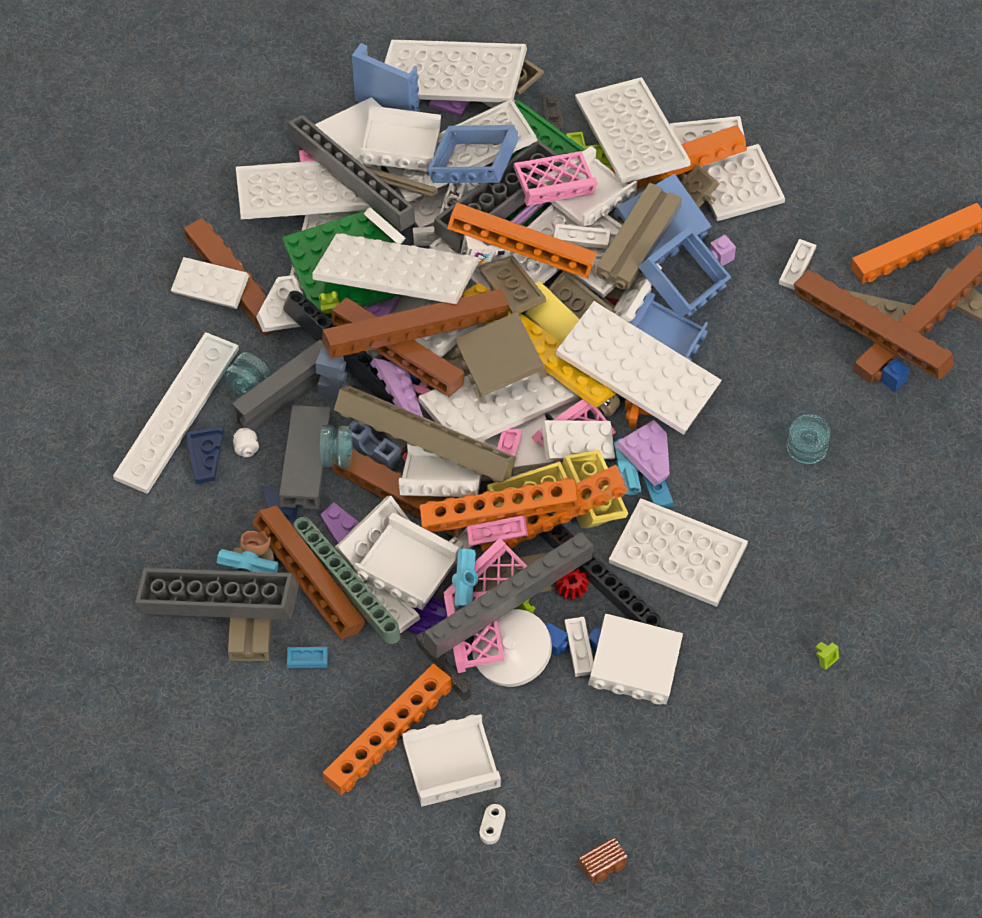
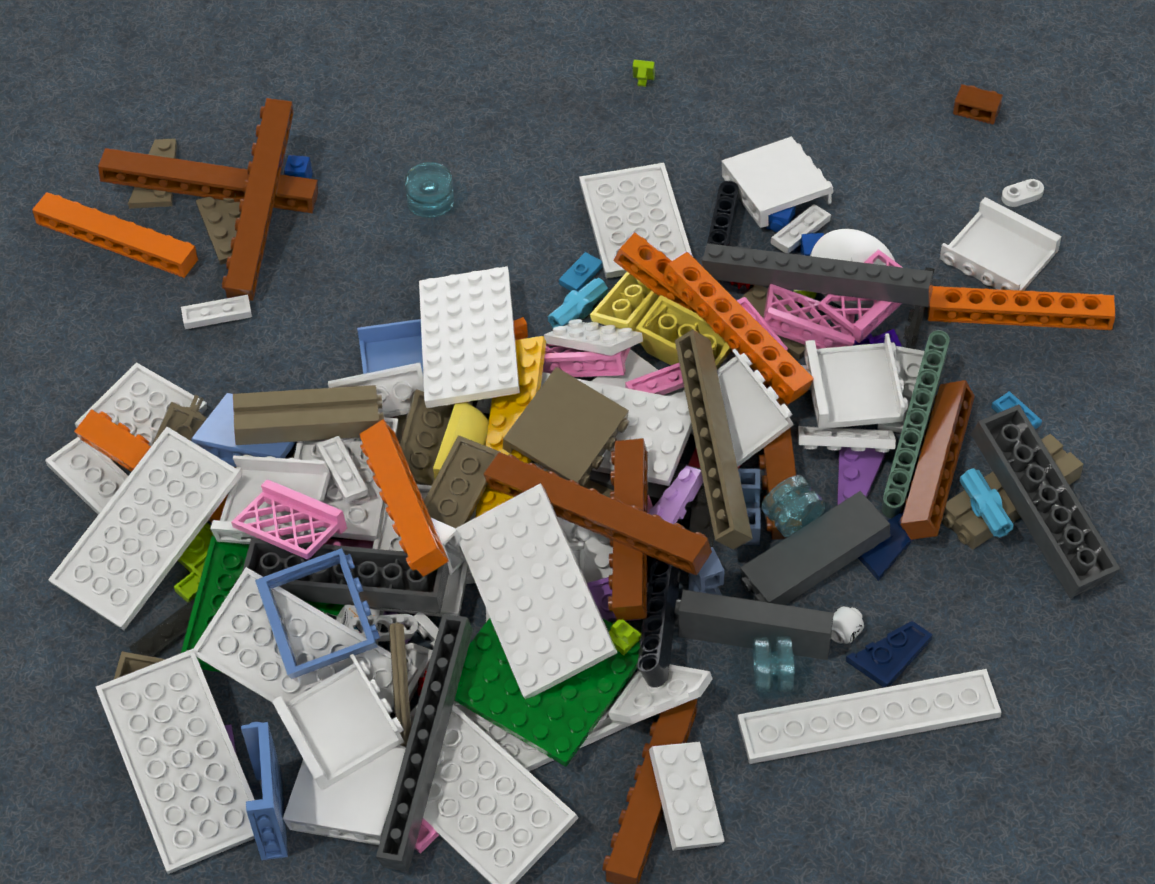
camera: 125 degrees left, 5 degrees down
(255, 542) = (959, 508): nougat hair -> none
(383, 225) = (479, 648): white beam -> none
(464, 578) = (833, 316): medium azure piece -> none
(648, 451) = (551, 293): lavender plate -> none
(704, 259) = (352, 344): medium blue window -> none
(723, 250) = (249, 373): lavender brick -> none

